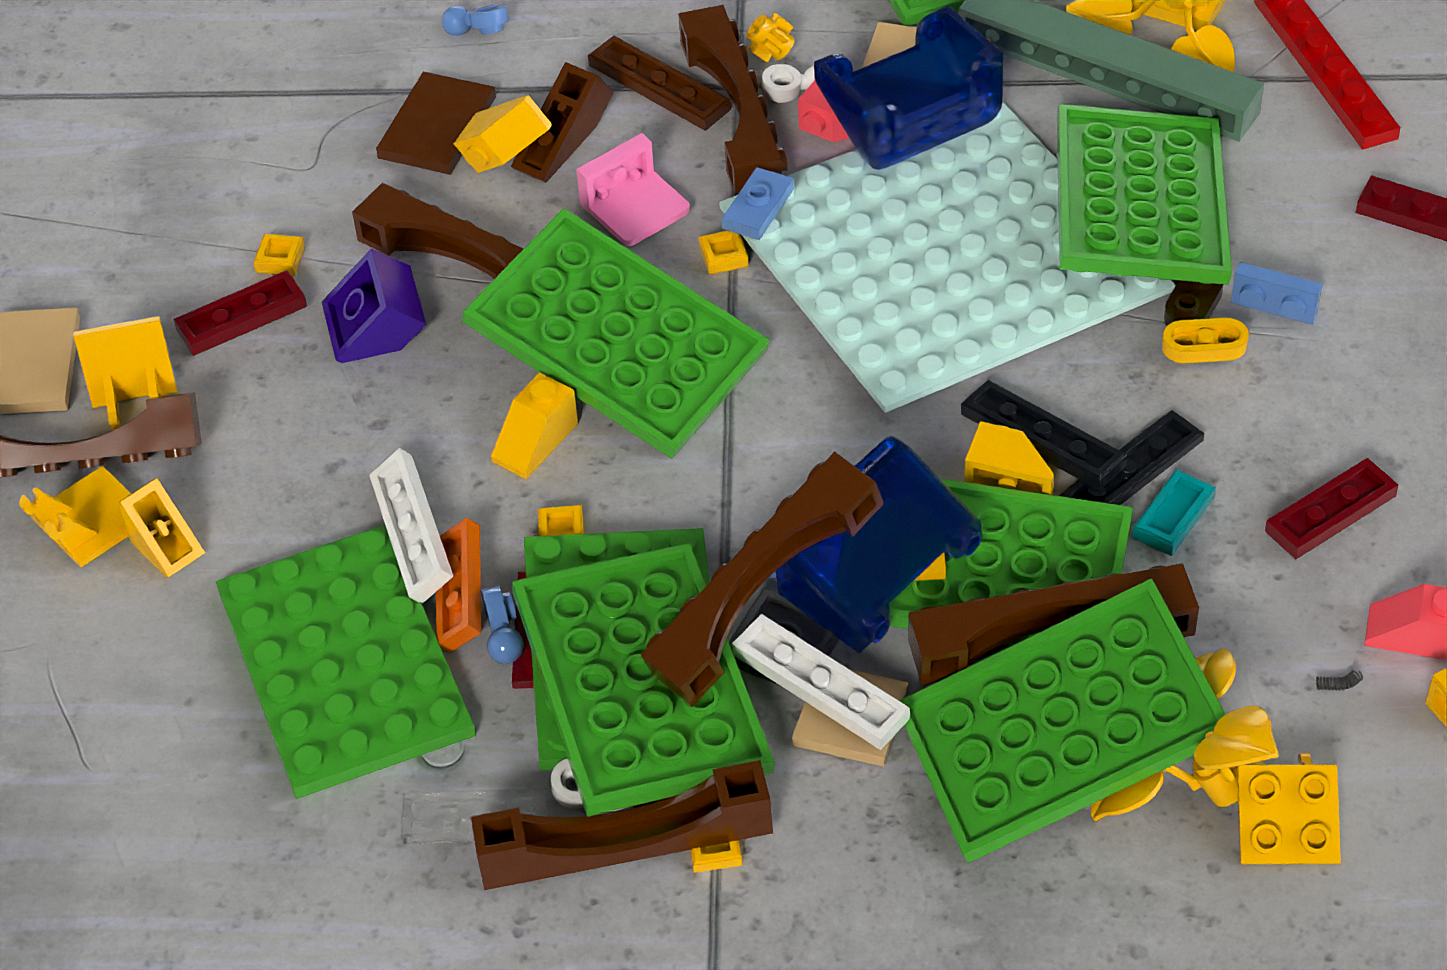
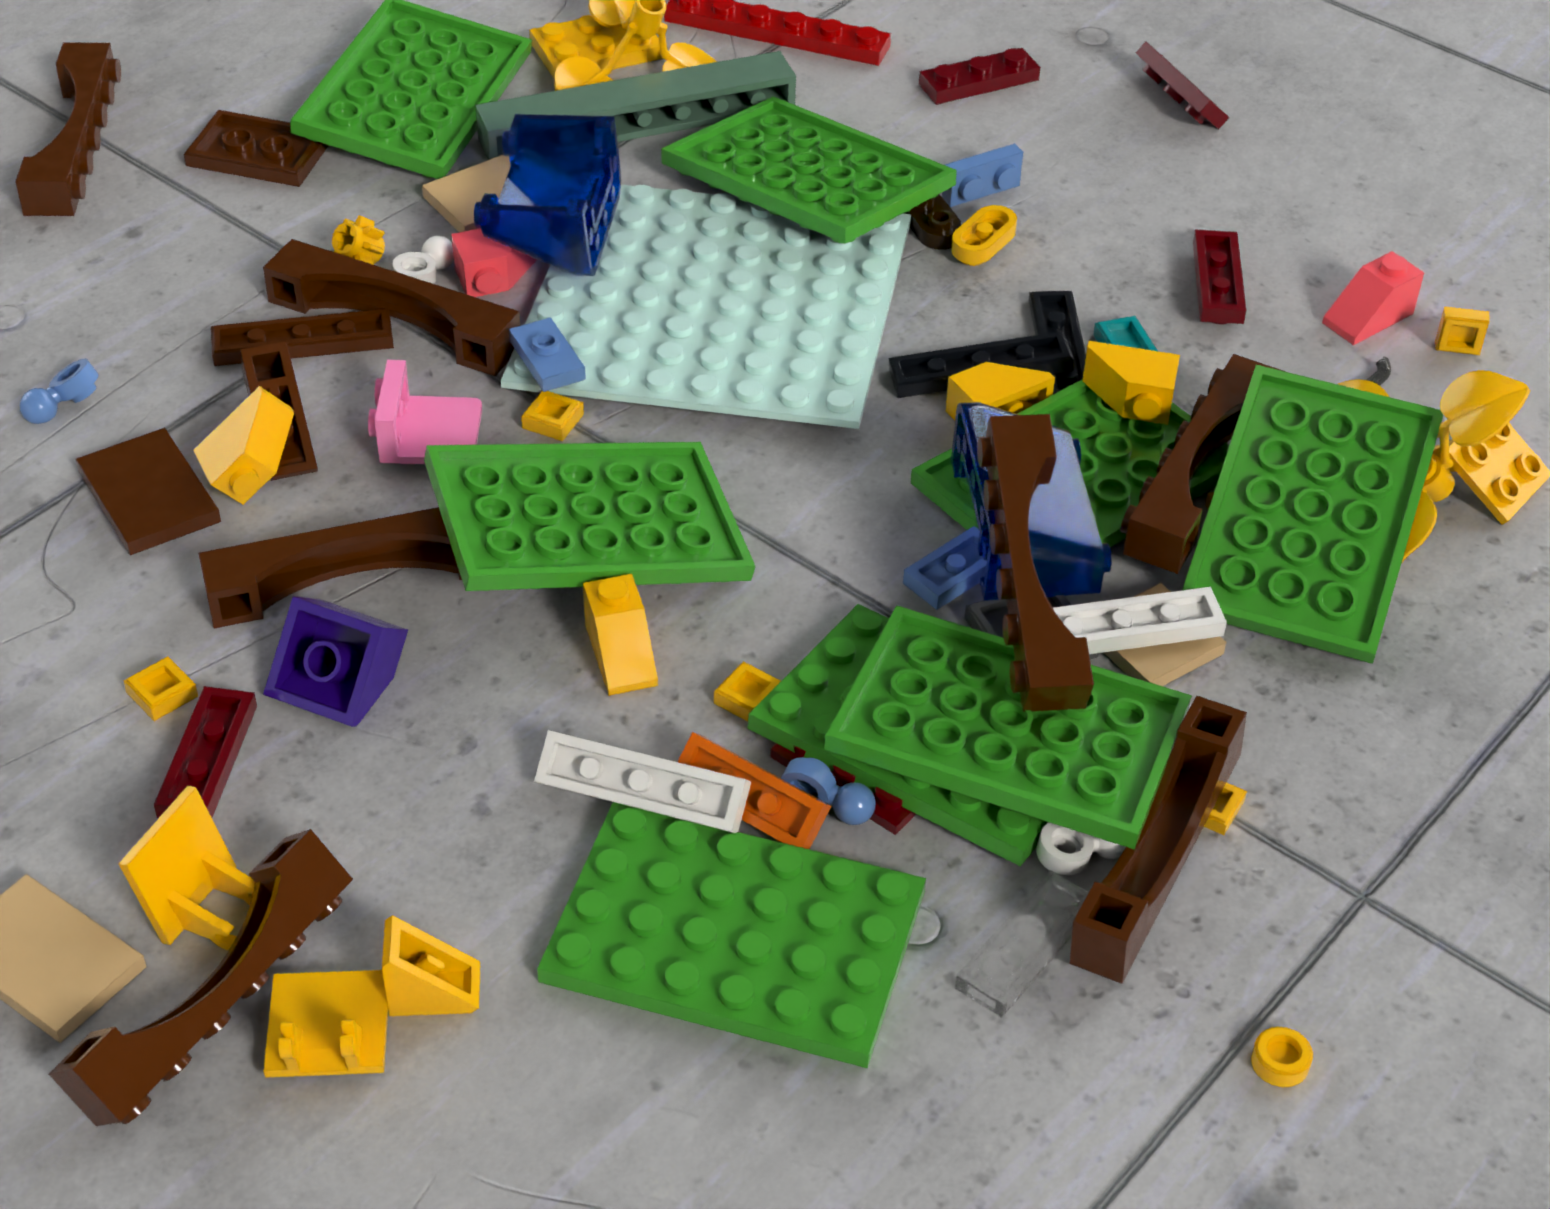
camera: 55 degrees left, 5 degrees down
(1101, 531) = (1132, 380): none -> yellow slope

